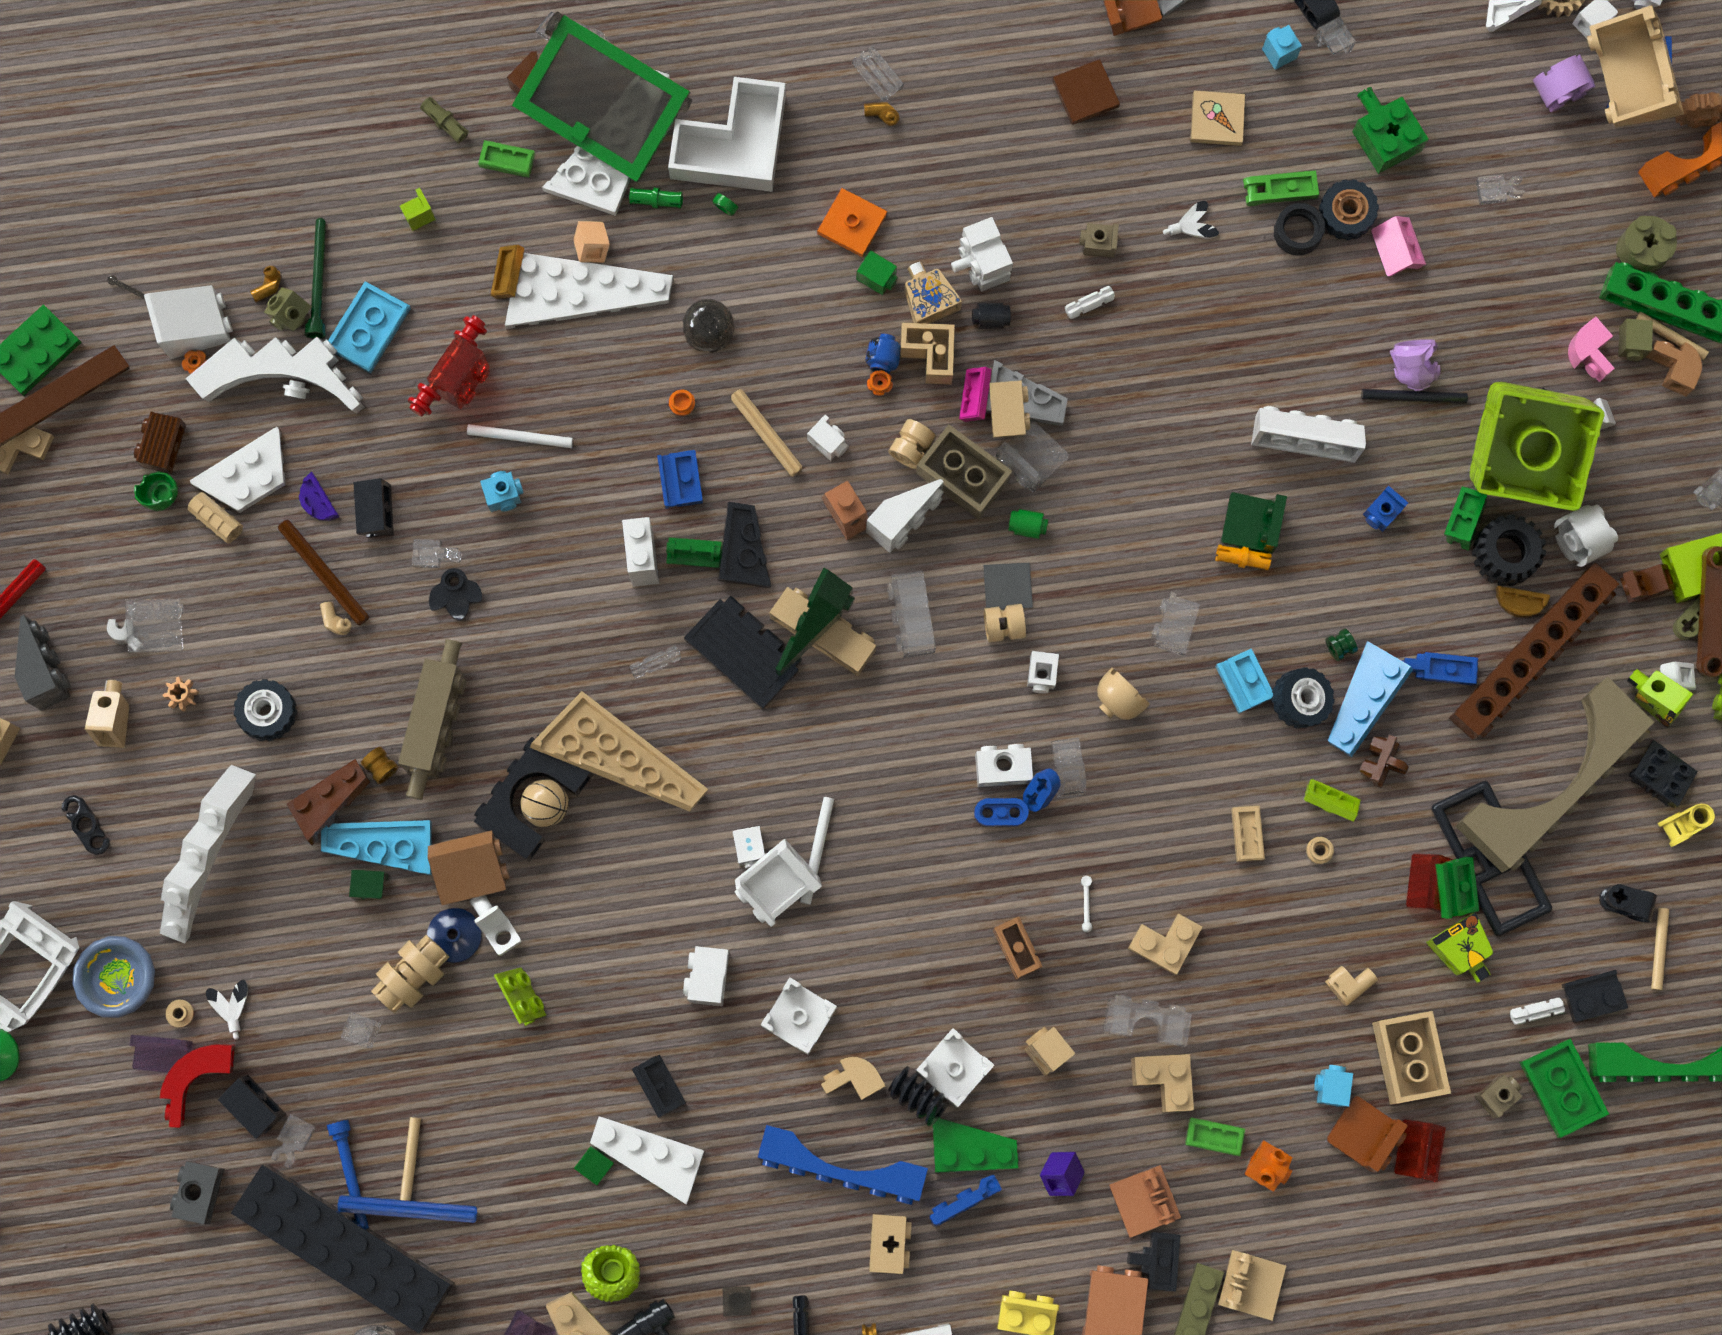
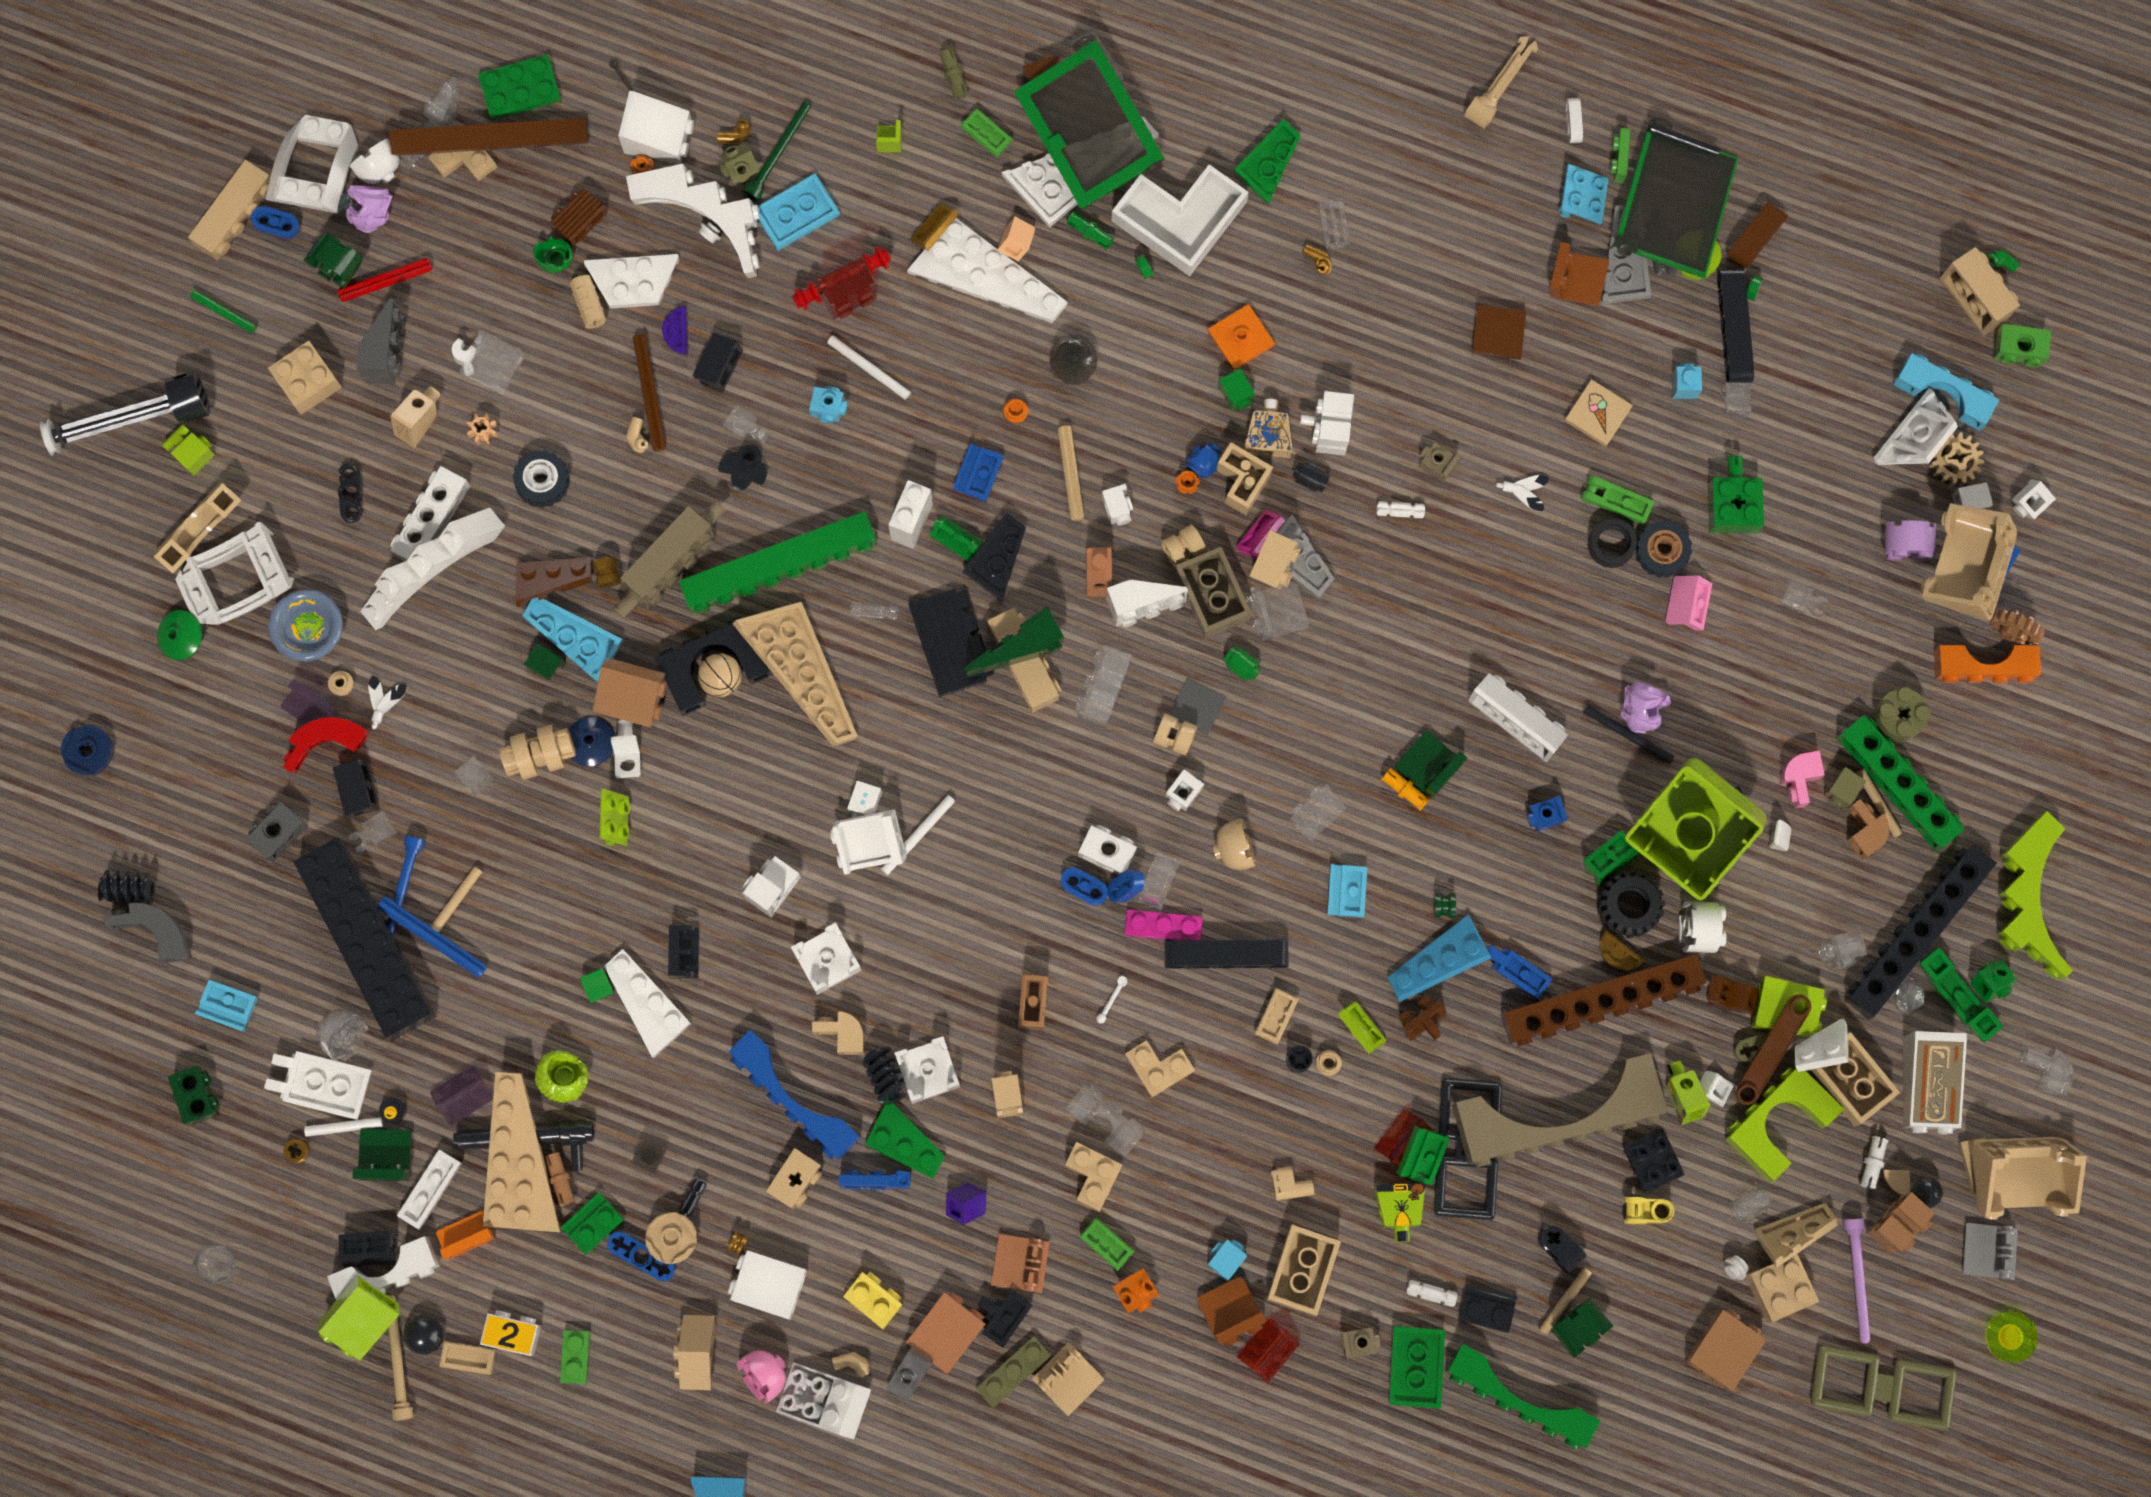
camera: 30 degrees right, 0 degrees up
(187, 792) = (443, 511): none -> white brick
(538, 666) = (778, 562): none -> green brick
(784, 47) = (1267, 162): none -> green wing
(1094, 808) = (1163, 926): none -> dark pink plate
(1168, 802) = (1226, 954): none -> black beam
(1296, 860) = (1302, 1056): none -> black wheel
(1317, 696) = (1372, 925): black wheel -> none
(1693, 965) = (1581, 1327): none -> dark green brick

